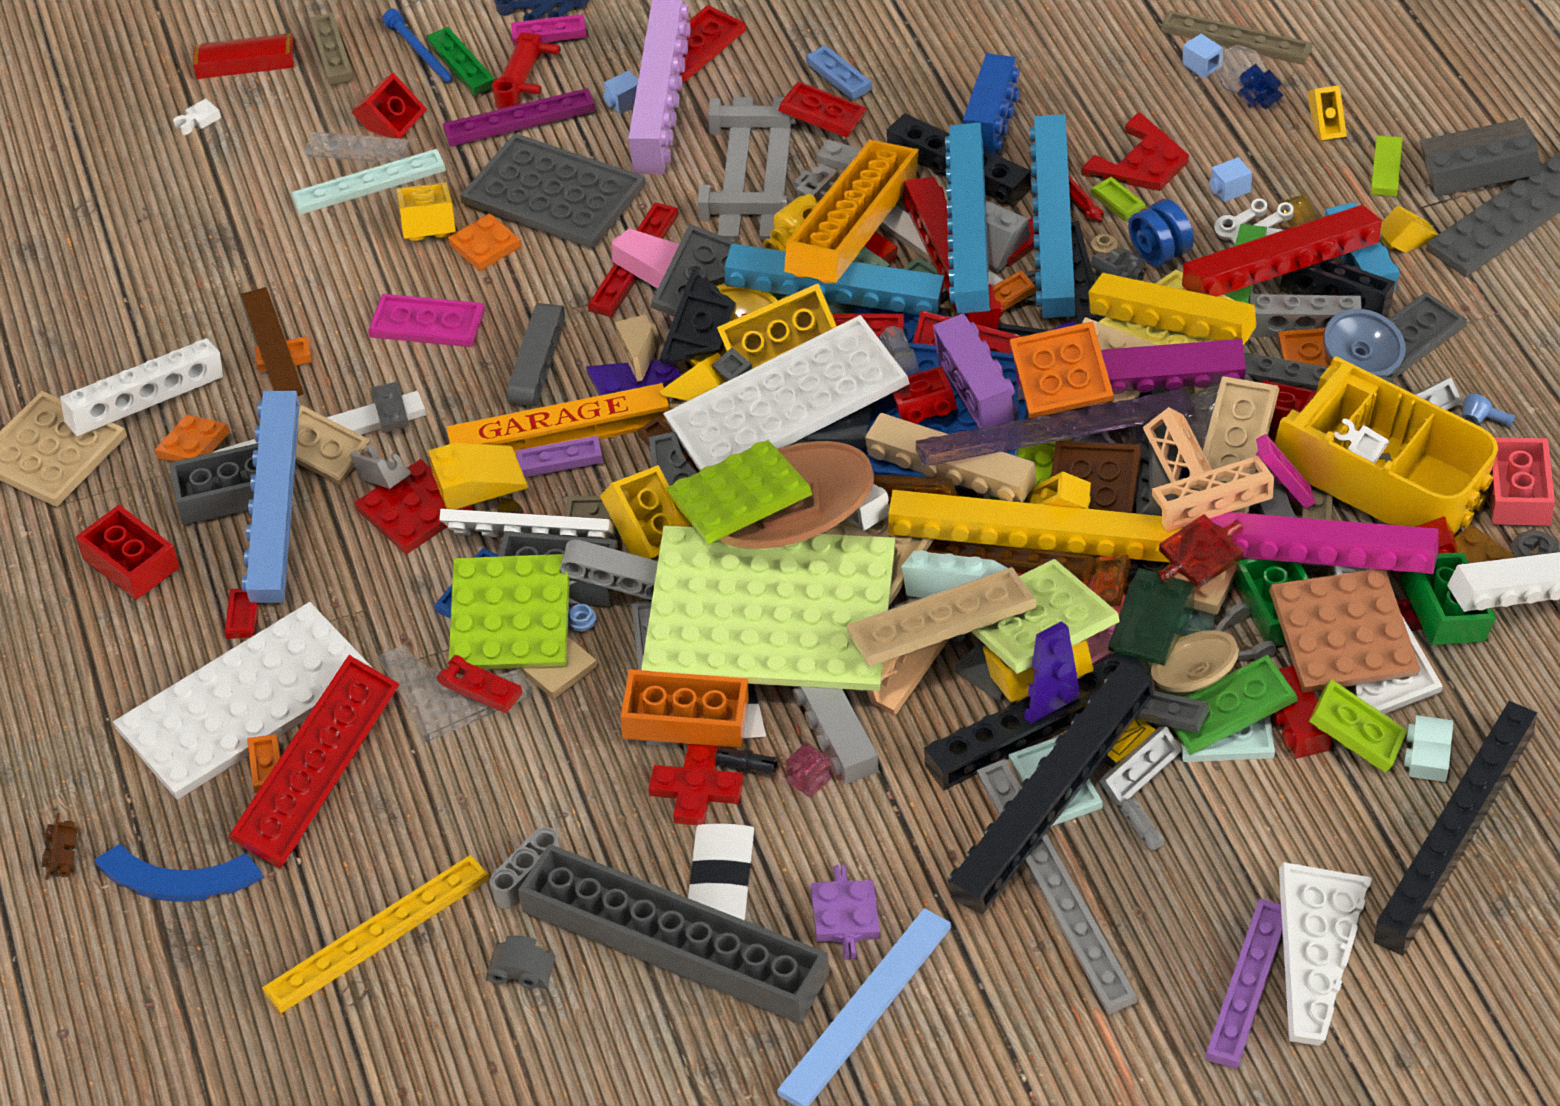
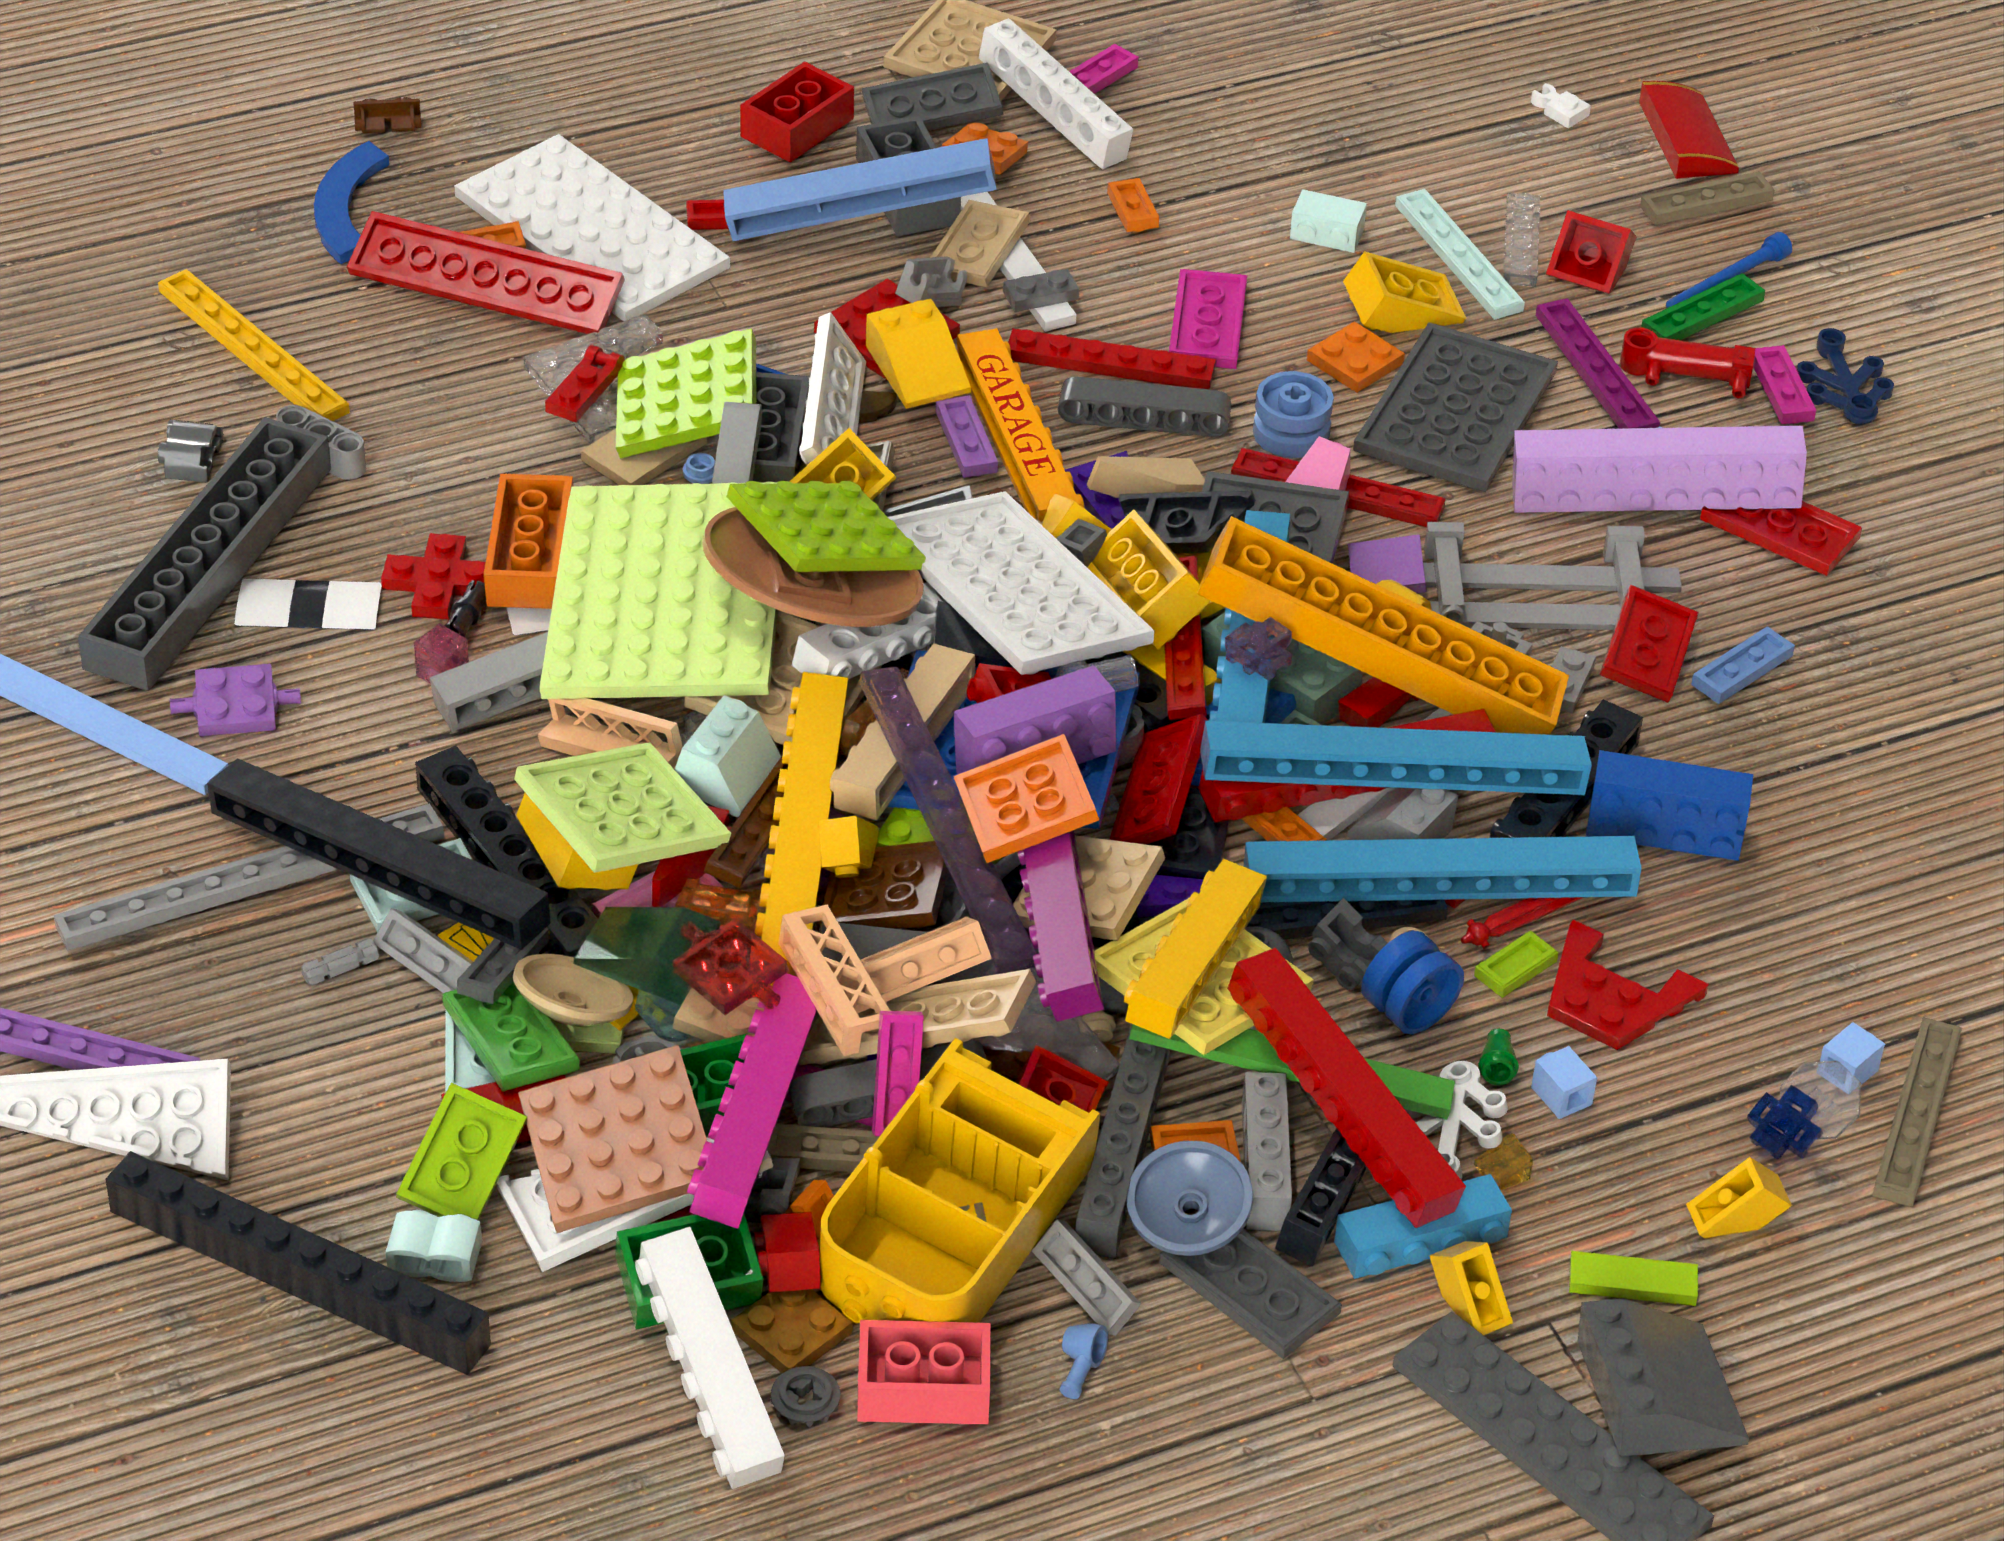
camera: 80 degrees right, 5 degrees down
(94, 363) = (1105, 68): none -> dark pink plate
(124, 468) = (937, 98): none -> dark grey tile
(271, 341) = (1137, 185): reddish brown tile -> none
(326, 244) = (1328, 221): none -> light aqua brick
(470, 374) = (1111, 359): none -> red plate
(562, 270) = (1292, 413): none -> medium blue wheel
(733, 225) = (1390, 559): none -> medium lavender tile
(878, 257) = (1258, 639): none -> clear purple piece
(940, 616) = (616, 714): tan plate -> none
(1054, 675) = (525, 822): dark purple wing -> none
(1207, 208) = (1498, 1059): none -> green cone
(1365, 442) = (920, 1133): white plate -> none

